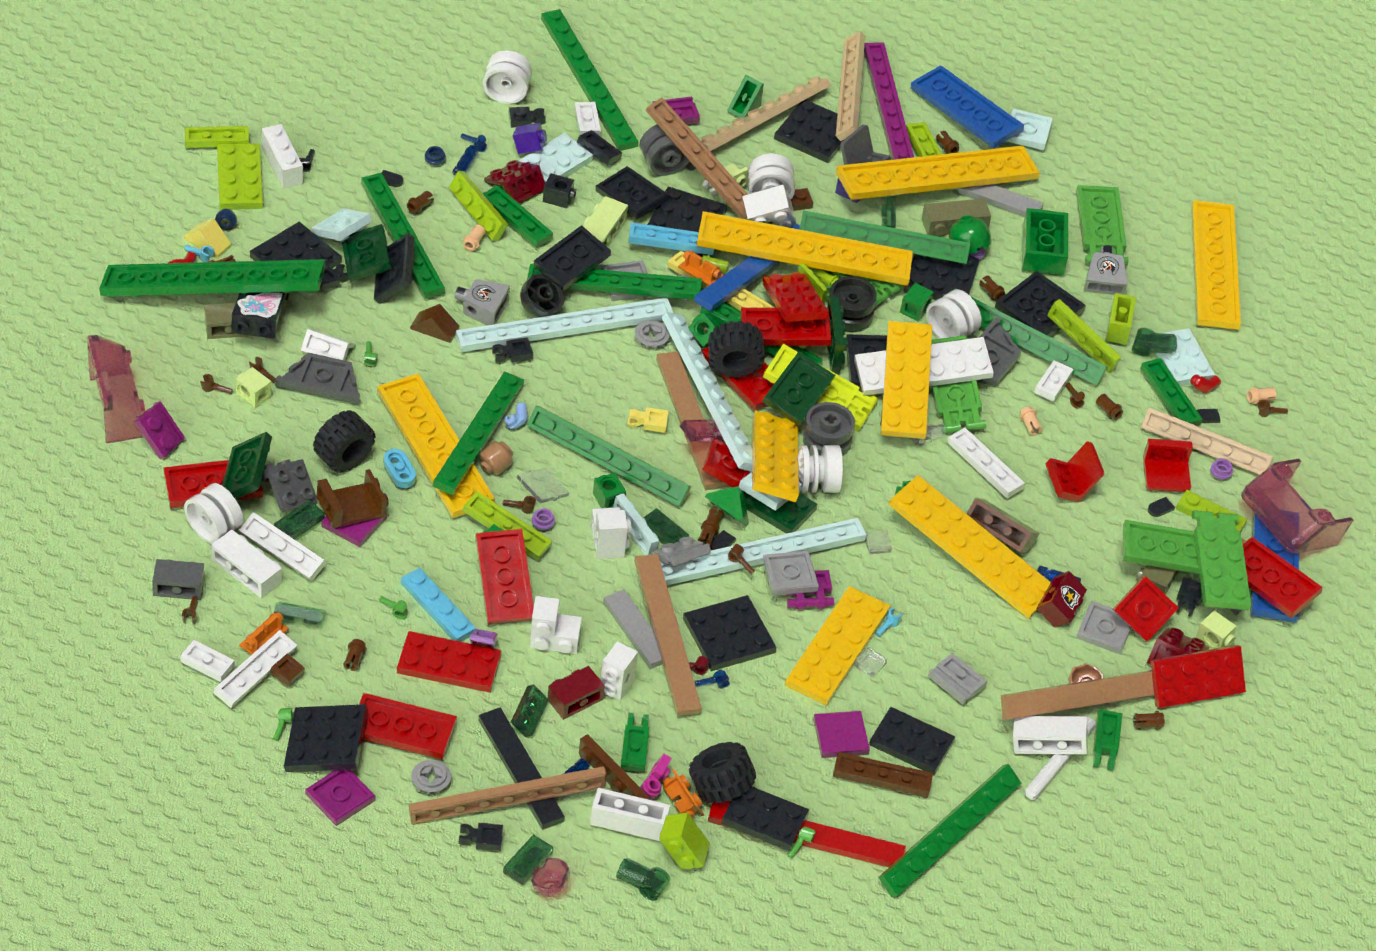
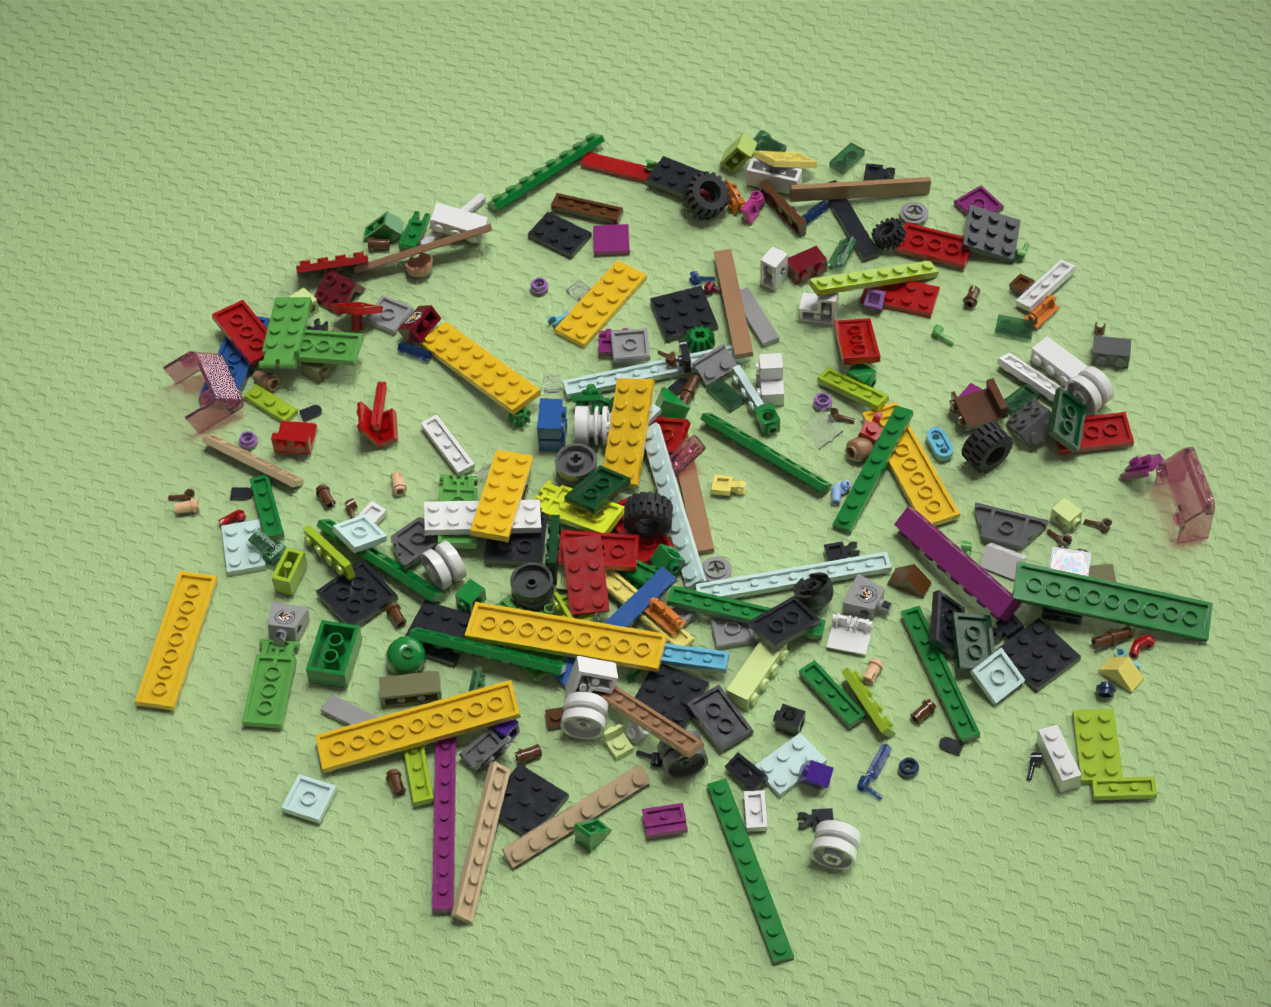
camera: 165 degrees left, 5 degrees up
(207, 661) = (1082, 293): white plate -> none
(385, 323) = (957, 563): none -> magenta brick
(437, 605) = (908, 336): medium azure plate -> none
(474, 723) = (888, 233): none -> black tyre
(483, 464) = (871, 430): none -> plate
(485, 644) = (873, 278): none -> lime plate
(500, 271) = (850, 634): none -> white hinge
(519, 179) = (833, 736): dark red bracket -> none
(551, 878) = (832, 142): clear pink hair -> none
(616, 828) = (785, 159): none -> light yellow tile
(635, 744) = (764, 231): green hinge -> none
(704, 588) = (700, 339): none -> green gear
(719, 548) = (684, 358): none -> black plate
(821, 166) = (528, 753): none -> reddish brown pin
(827, 505) = (592, 397): none -> green hips
(867, 469) = (551, 424): none -> blue piece
(922, 664) = (539, 285): none -> medium lavender plate
(957, 678) = (515, 273): light grey plate -> none
(967, 106) = (366, 819): blue plate -> none
(1003, 525) = (450, 383): brick -> none
(1055, 344) = (359, 533): none -> light aqua plate
(1080, 498) = (378, 406): none -> red axle
(1147, 734) = (384, 227): none -> green slope

